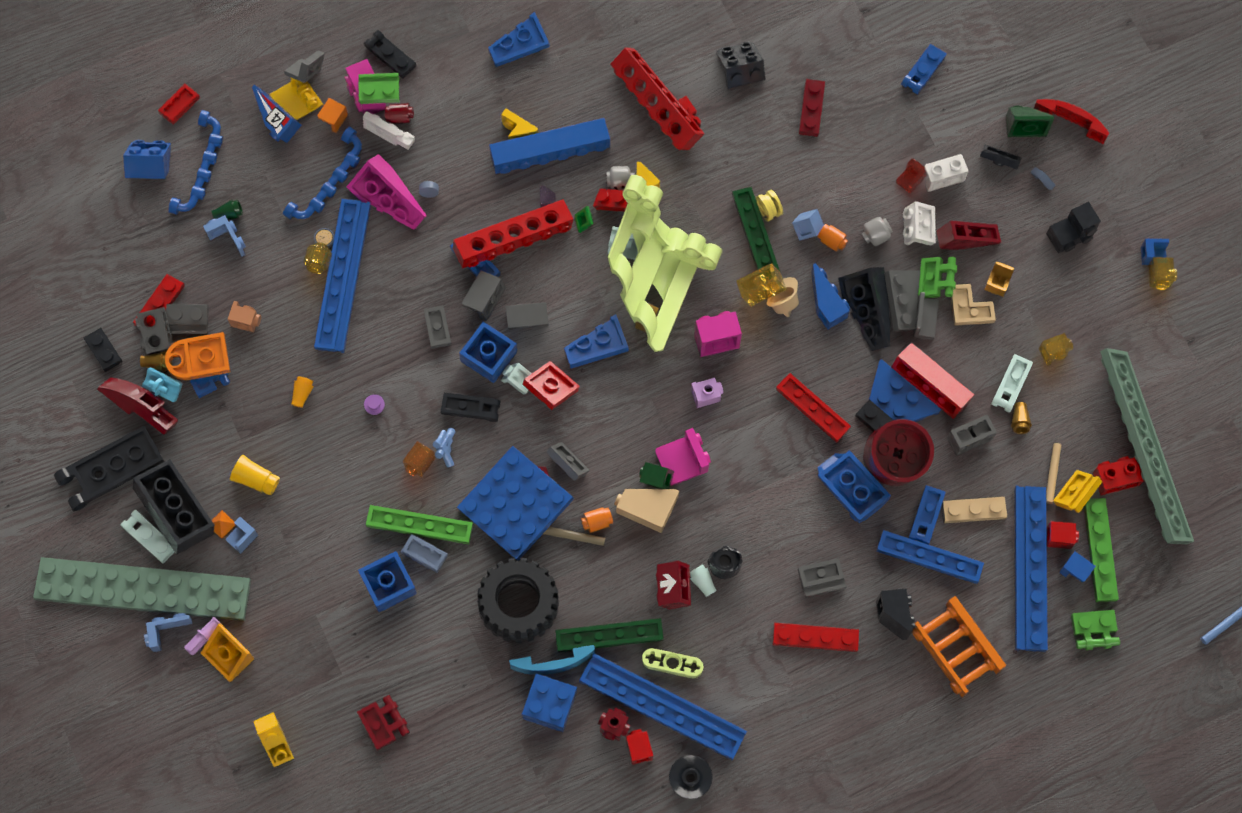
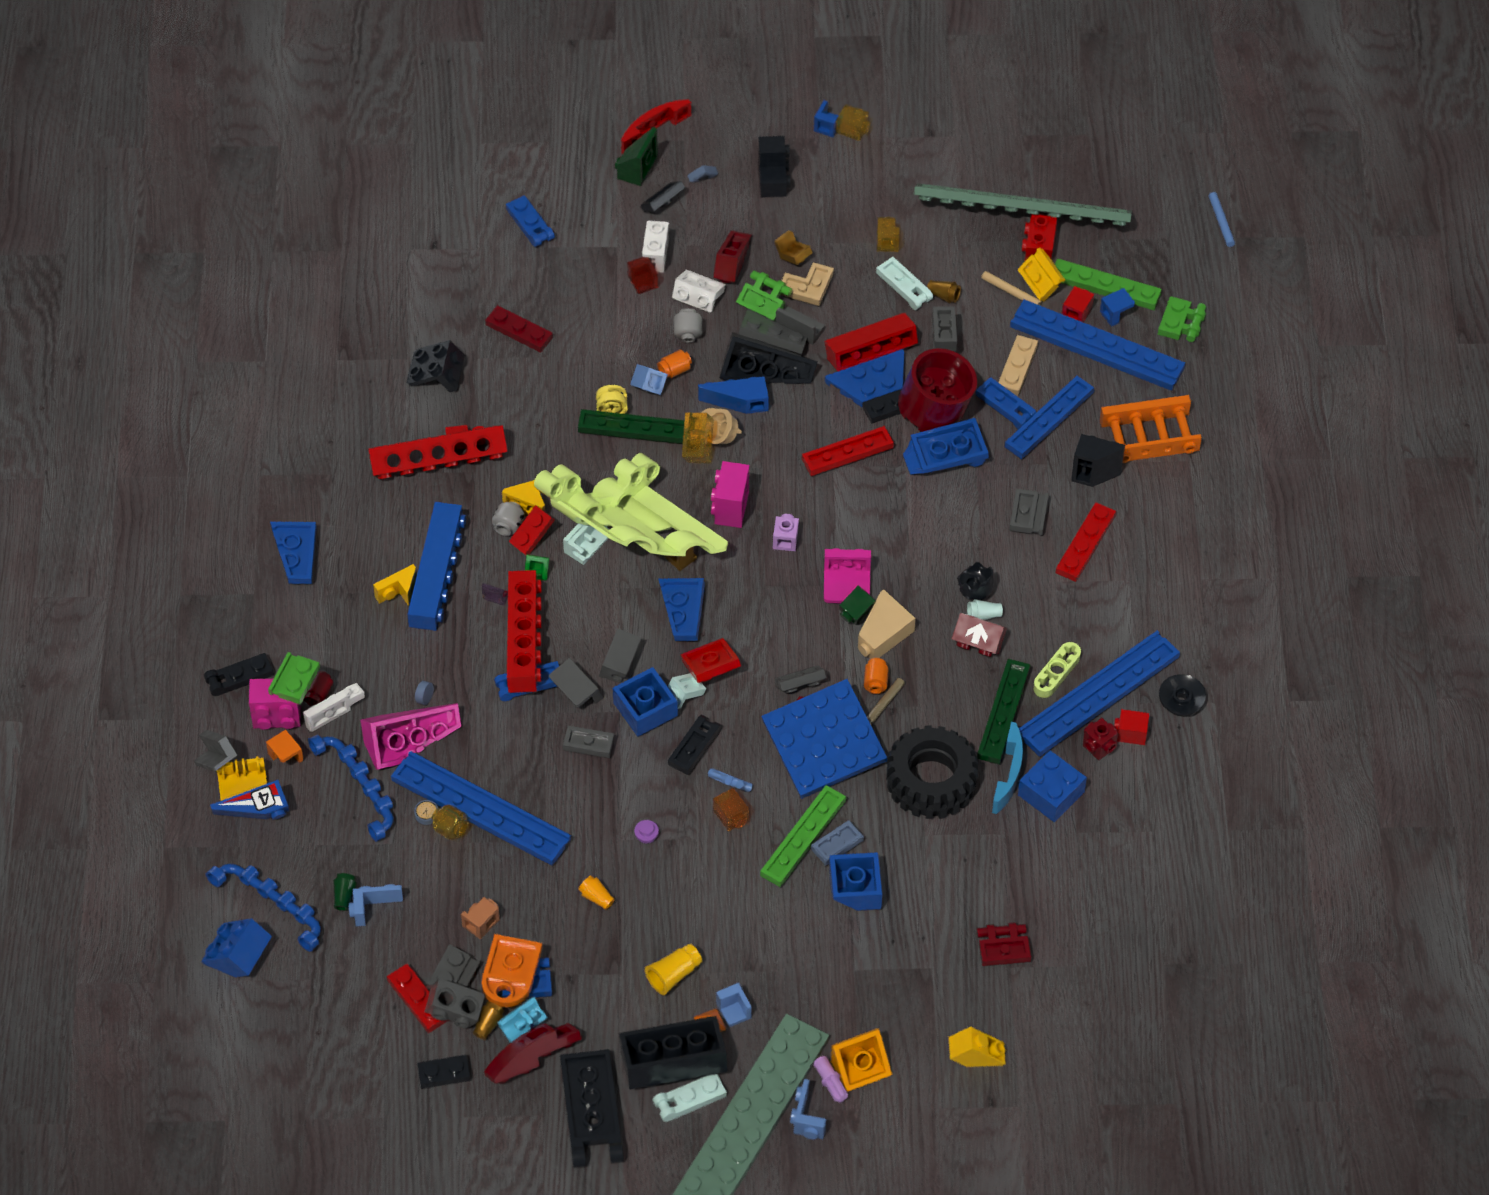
camera: 65 degrees left, 15 degrees down
(179, 104) = (183, 895): red plate -> none

